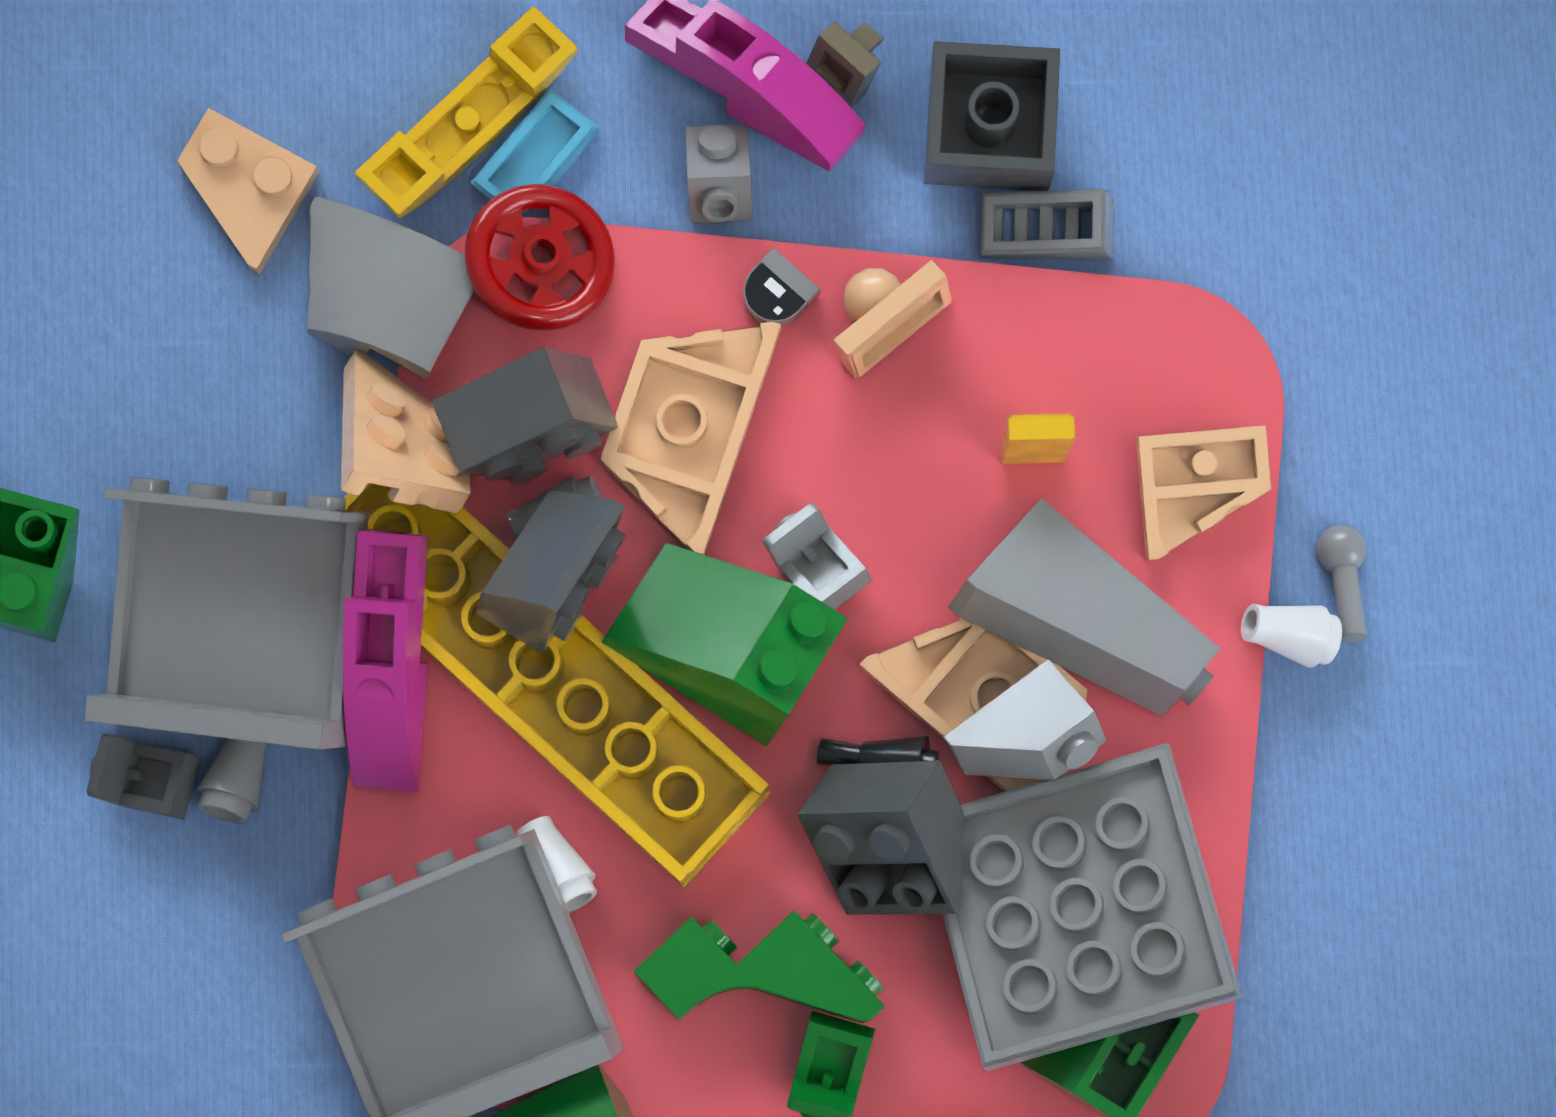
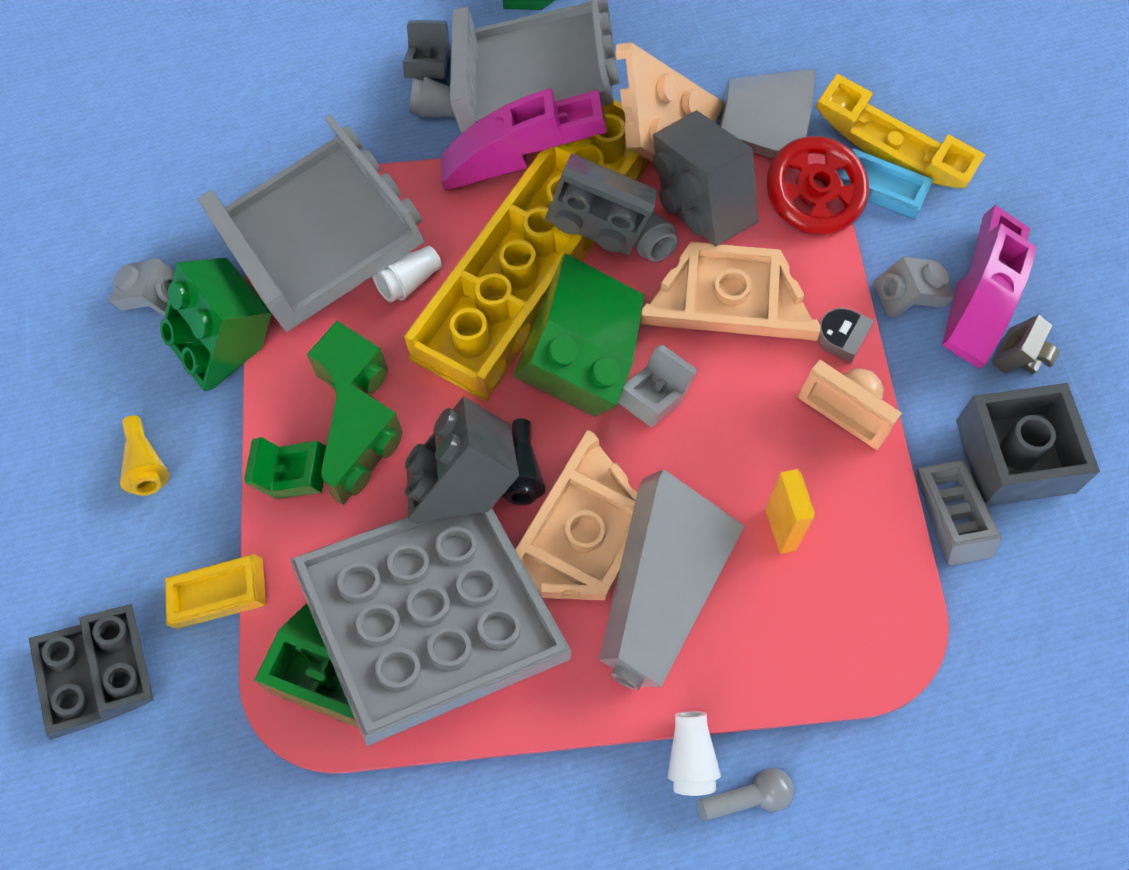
camera: 80 degrees right, 15 degrees down
(246, 184) = (807, 39): light nougat wing -> none
(1029, 730) = (561, 545): slope -> none
(1197, 480) = (794, 651): light nougat wing -> none

